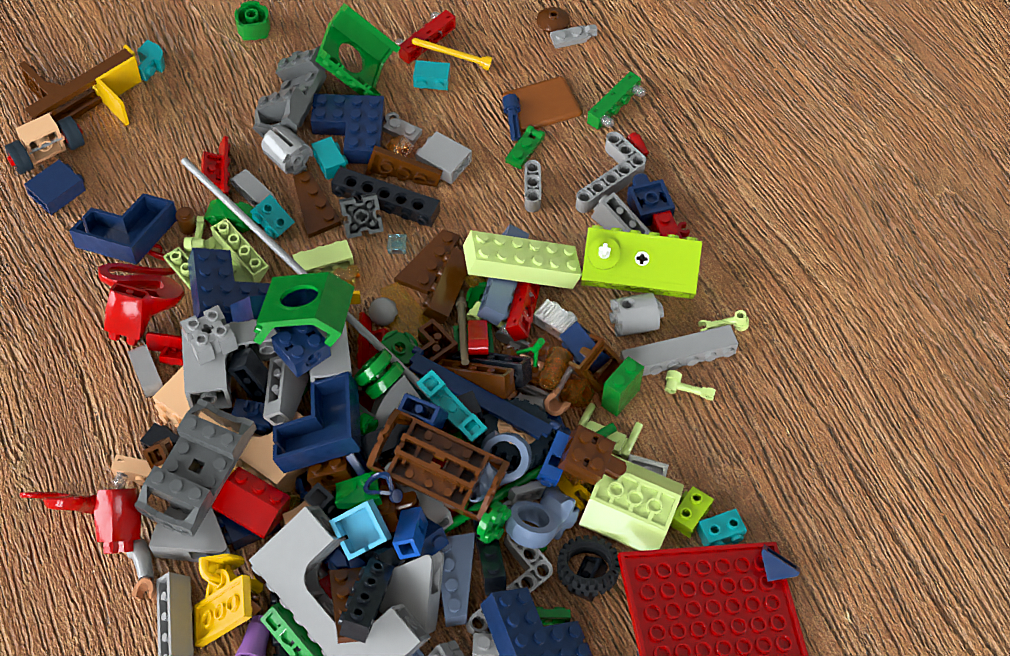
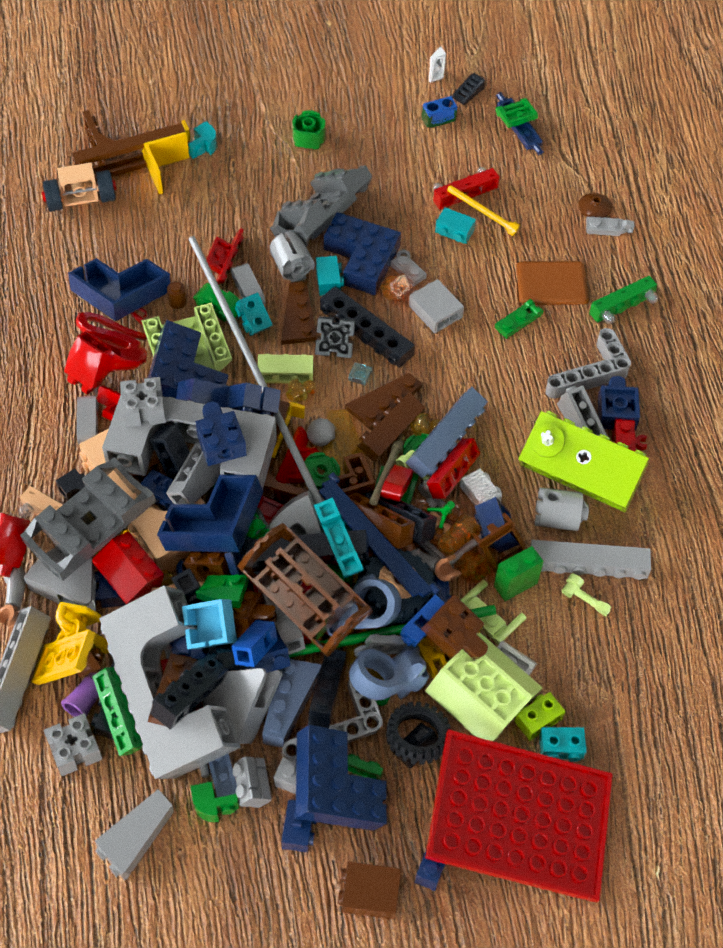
camera: 20 degrees right, 0 degrees up
(55, 186) = (74, 231): dark blue brick -> none
(158, 452) = (63, 494): reddish brown brick -> none
(196, 241) = (177, 317): yellowish green brick -> none
(326, 311) = (250, 413): green panel -> none
(372, 45) = (407, 179): green panel -> none
(378, 374) = (286, 487): green wheel -> none
(395, 495) = (254, 603): dark blue piece -> none
(404, 168) = (385, 299): reddish brown wing -> none
(423, 410) = (310, 534): dark blue brick -> none
(492, 524) = (336, 661): green plate -> none
(512, 107) = (519, 277): dark blue piece -> none
(521, 259) = (467, 423): yellowish green brick -> none
(532, 186) = (510, 357): light grey beam -> none
(637, 141) = (630, 347): red cone -> none
(740, 322) = (663, 546): yellowish green brick -> none
(777, 566) = (603, 797): dark blue slope -> none

